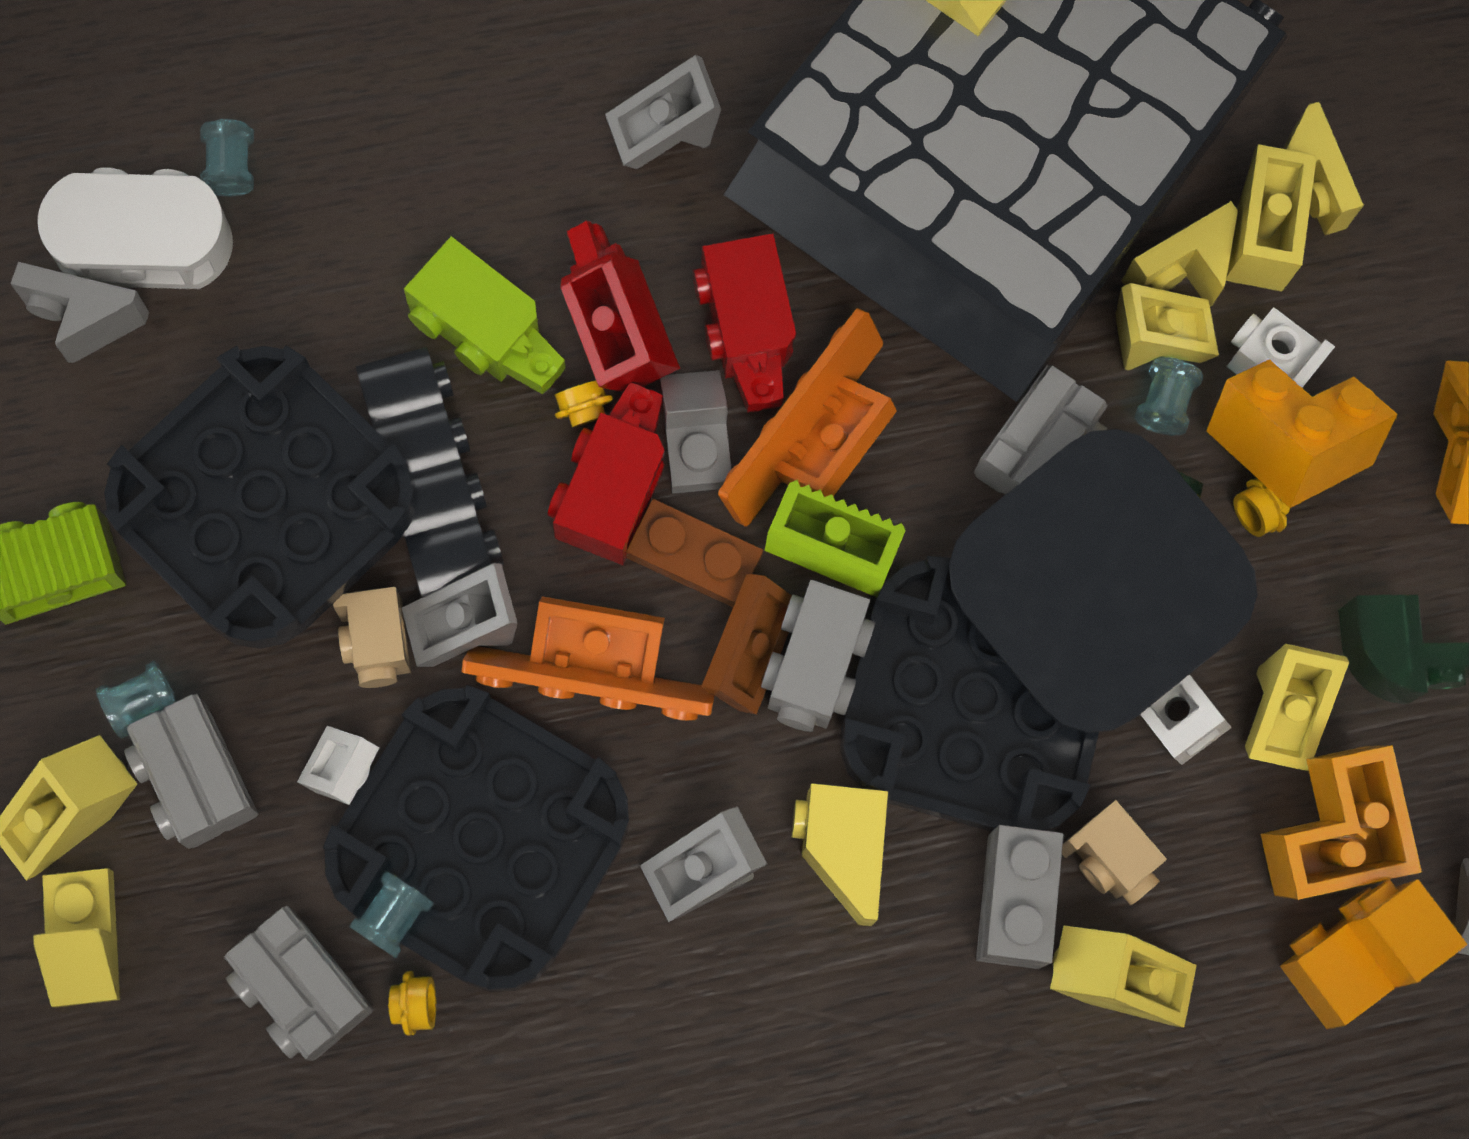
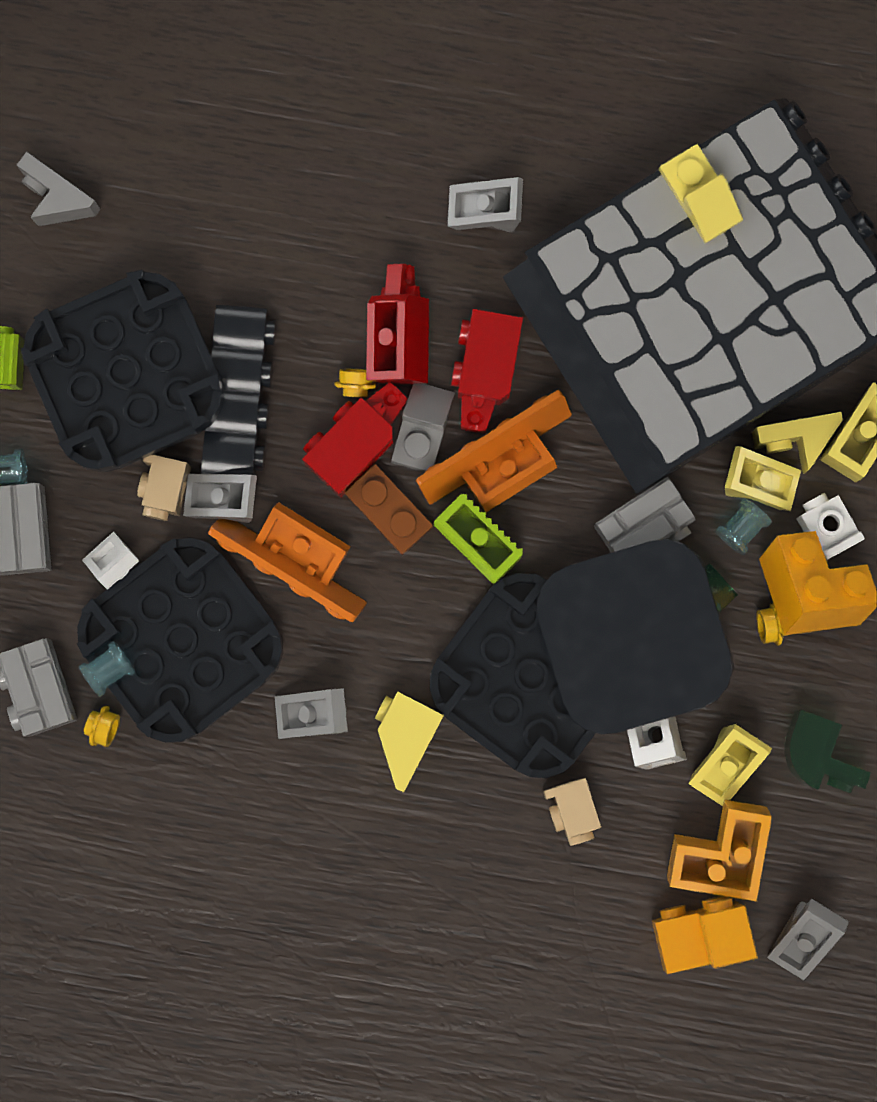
camera: 35 degrees right, 10 degrees up
(136, 229) = (110, 152): white brick -> none
(227, 157) = (187, 123): clear light blue bush -> none
(482, 317) = (313, 299): lime hinge -> none
(748, 643) = (399, 584): dark orange plate -> none
(811, 675) = (427, 621): light grey brick -> none
(1020, 897) = (500, 813): light grey brick -> none
(1123, 975) = (546, 887): light yellow slope -> none

